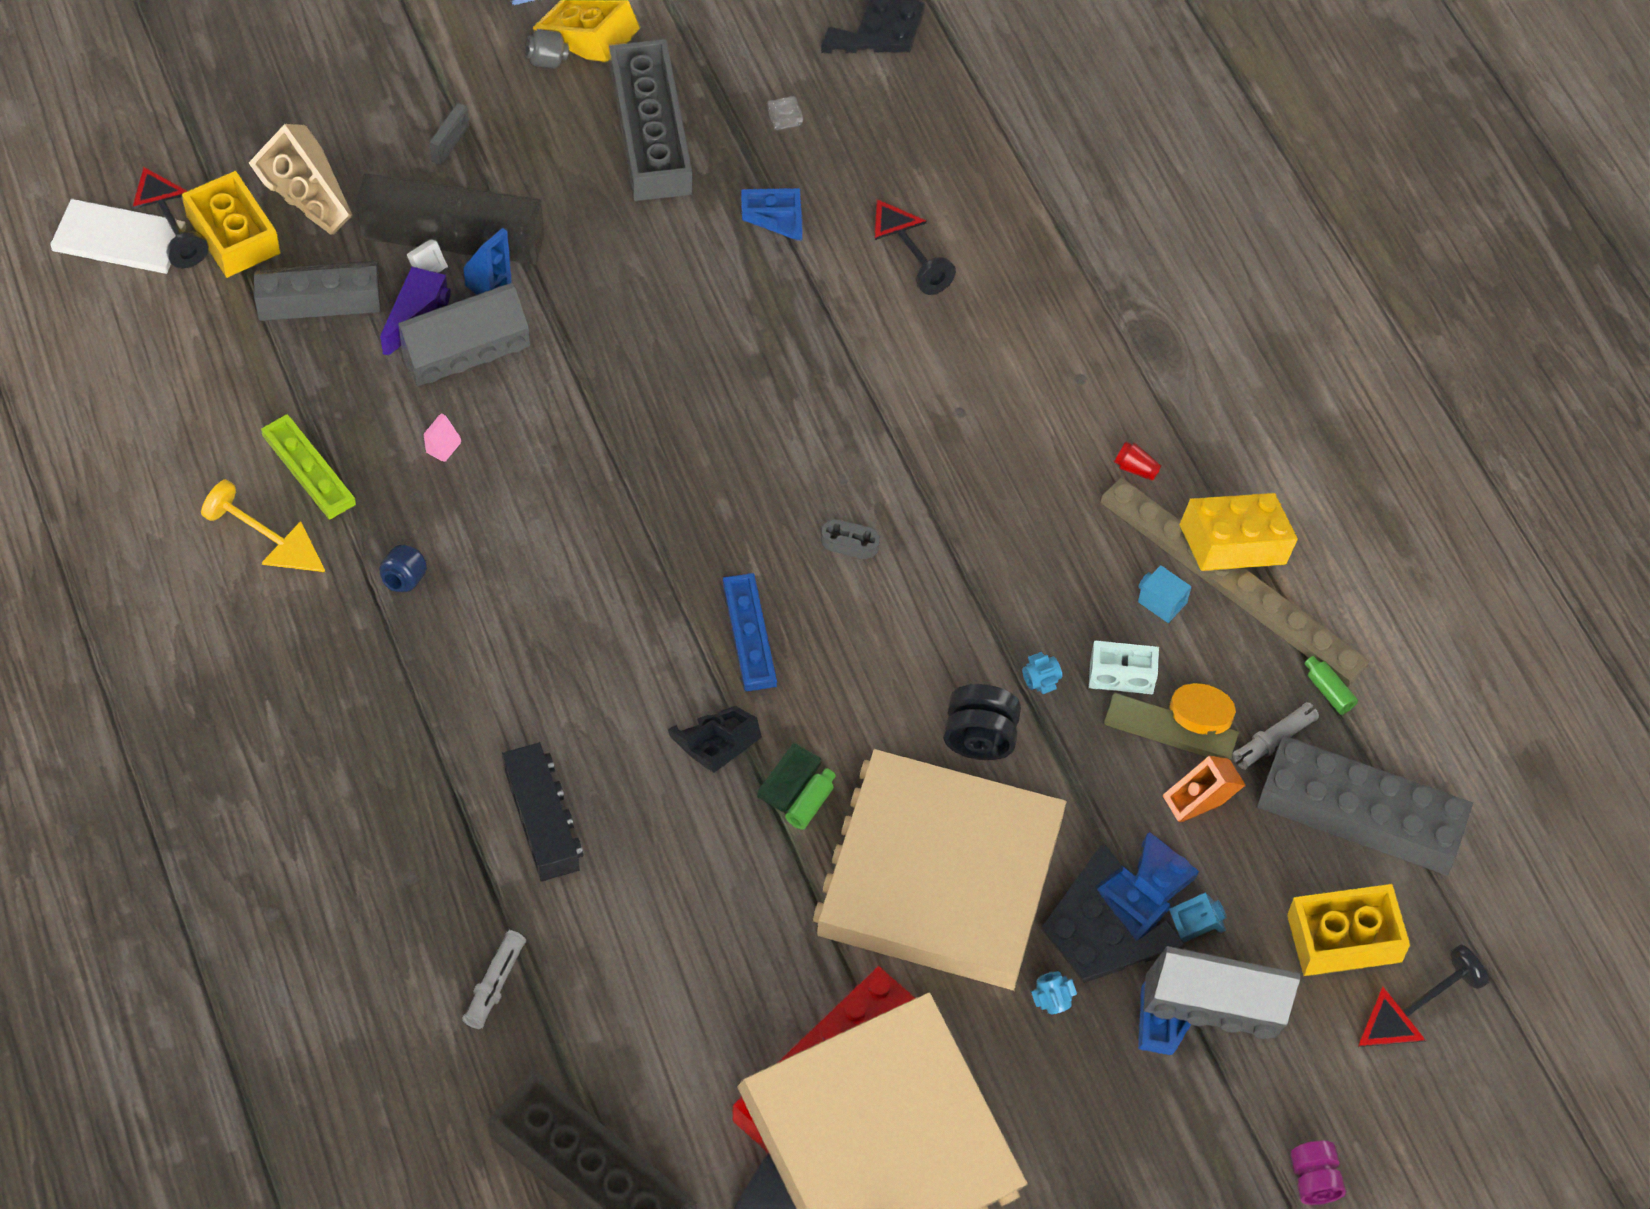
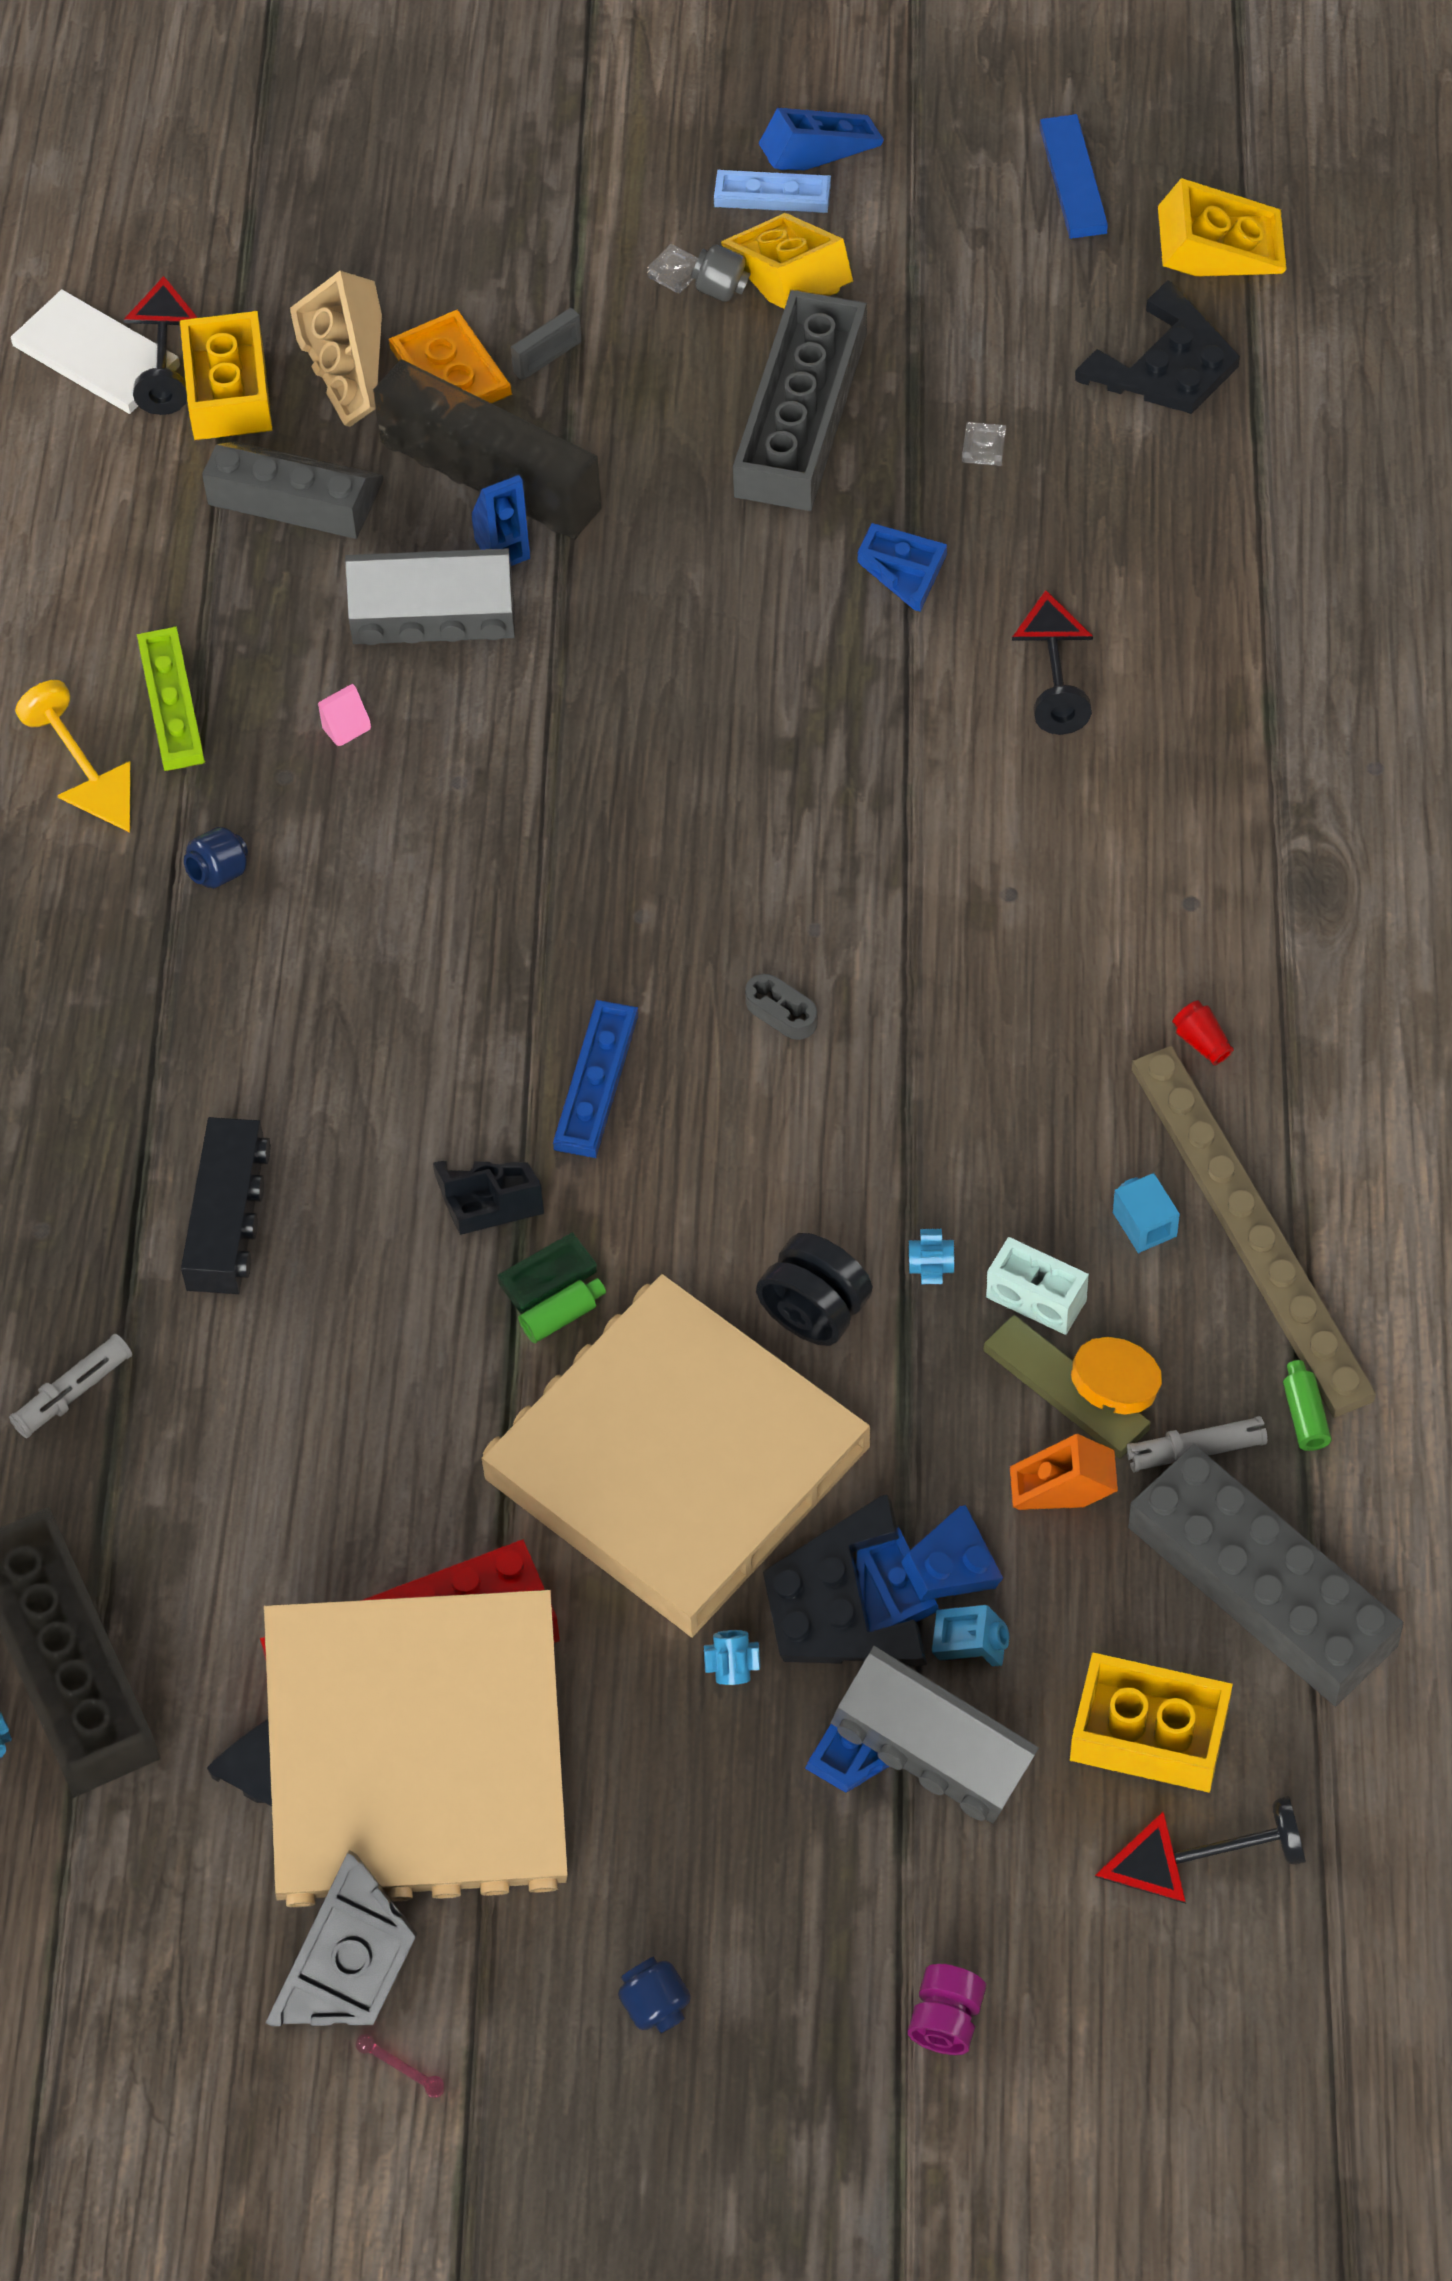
camera: 30 degrees right, 0 degrees up
(381, 157) = (454, 354): none -> light orange tile
(420, 294) = (406, 528): dark purple slope -> none
(428, 257) = (438, 492): white tile -> none
(509, 55) = (673, 268): none -> clear plate
(1238, 531) = (1280, 1165): yellow brick -> none

